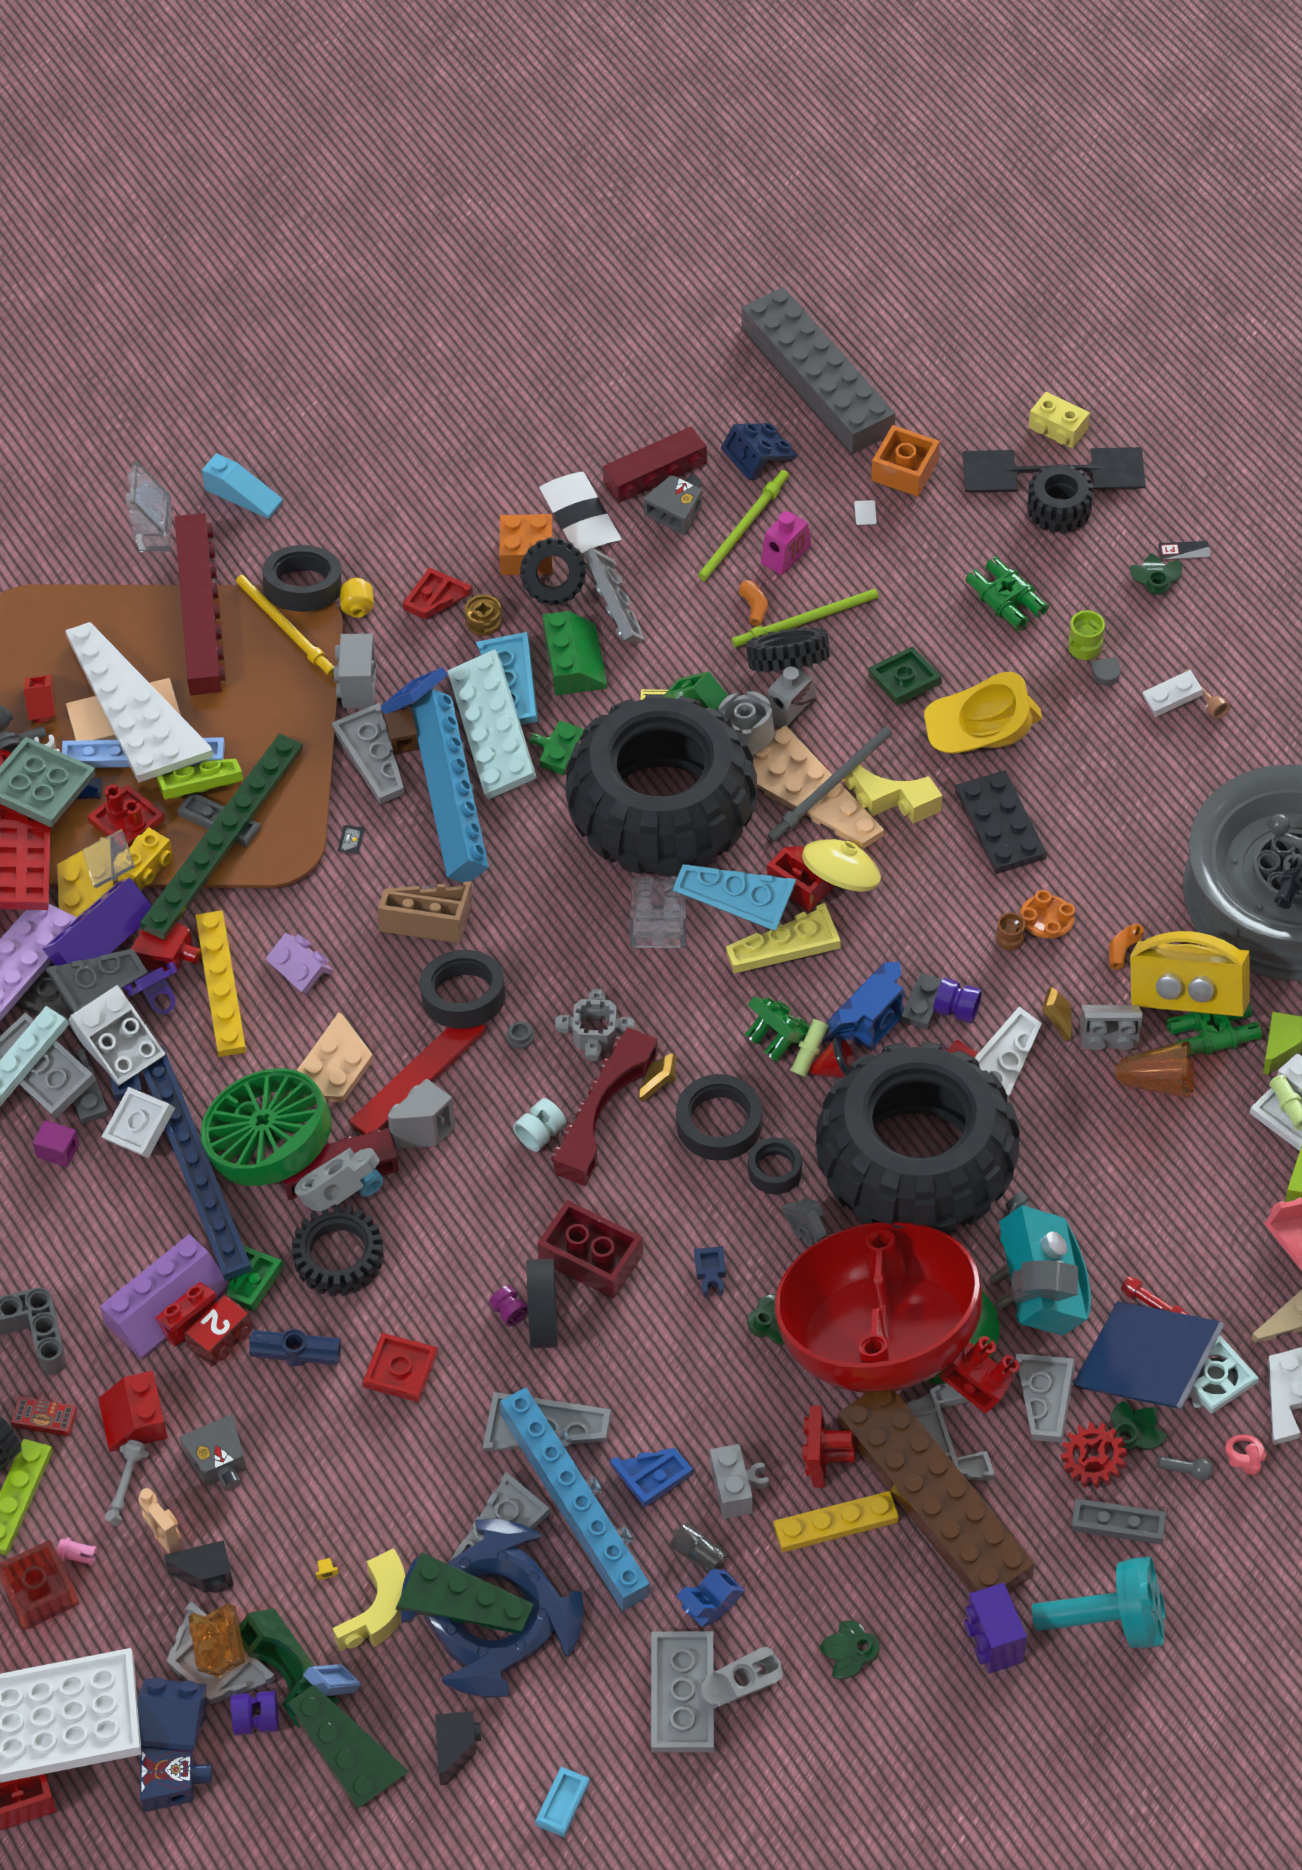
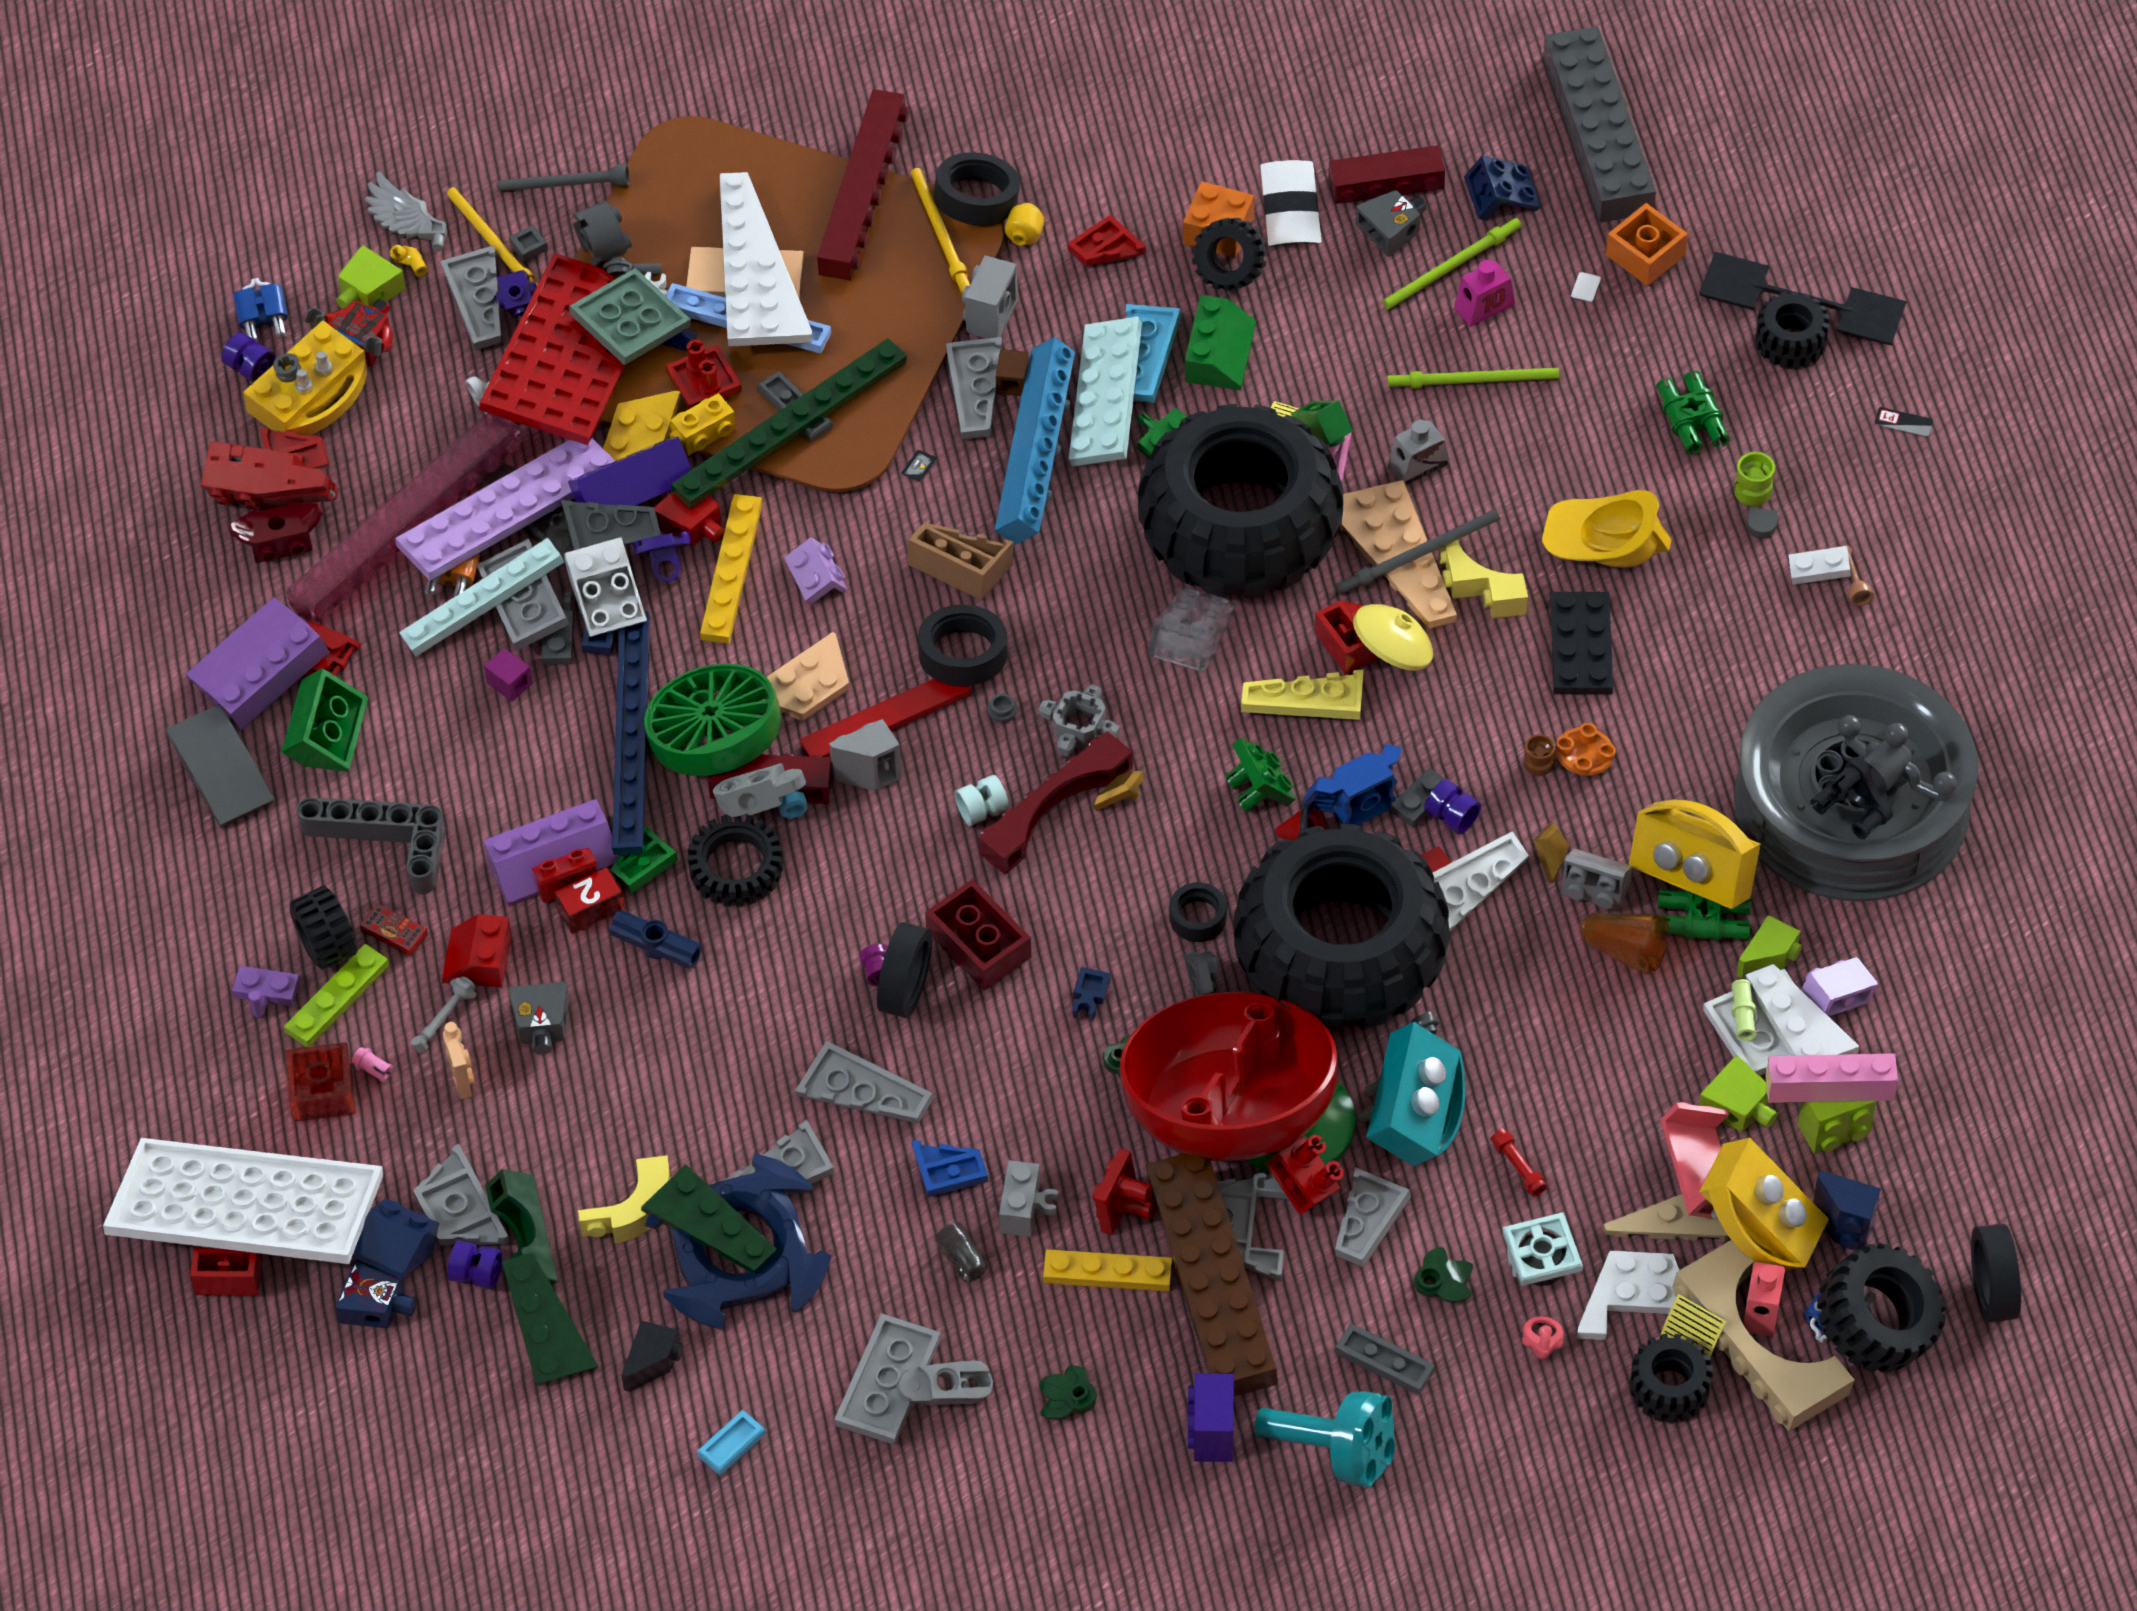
camera: 20 degrees right, 0 degrees up
(39, 698) = (666, 234): red arch -> none
(108, 858) = (666, 412): clear piece -> none
(138, 1122) = (593, 678): white plate -> none
(150, 511) = (850, 75): clear slope -> none
(199, 778) = (790, 359): lime wing -> none
(202, 1567) = (483, 1115): black slope -> none
(217, 1641) = (464, 1186): clear orange bracket -> none
(239, 486) = (954, 77): medium azure slope -> none
(326, 1569) = (599, 1156): yellow piece -> none
(332, 1679) = (558, 1257): medium blue tile -> none
(400, 1367) = (748, 990): red plate -> none
(413, 690) = (1038, 334): blue tile -> none
(483, 615) = (1145, 279): pearl gold wheel -> none
(575, 1498) = (861, 1165): dark azure piece -> none
(617, 601) = (1283, 287): light grey wing -> none
(711, 1598) = (953, 1301): blue brick -> none
(718, 1087) = (1162, 816): black tyre -> none
(742, 894) = (1281, 637): medium azure wing -> none
(750, 716) = (1360, 463): light grey brick -> none
(756, 600) = (1430, 345): orange arm -> none
(788, 649) = (1434, 402): black tyre -> none
(809, 1048) = (1281, 807): yellowish green pin -> none
(904, 675) = (1548, 465): dark green plate -> none
(1046, 1280) = (1401, 1100): dark grey brick -> none
(1059, 420) = (1830, 248): light yellow brick -> none
(1085, 1445) = (1372, 1286): red gear -> none
(1121, 942) = (1649, 797): orange arm -> none
(1148, 1355) = (1485, 1209): dark blue piece -> none
(1155, 574) = (1861, 435): dark green plate -> none
(1200, 1469) = (1491, 1336): dark grey bar -> none

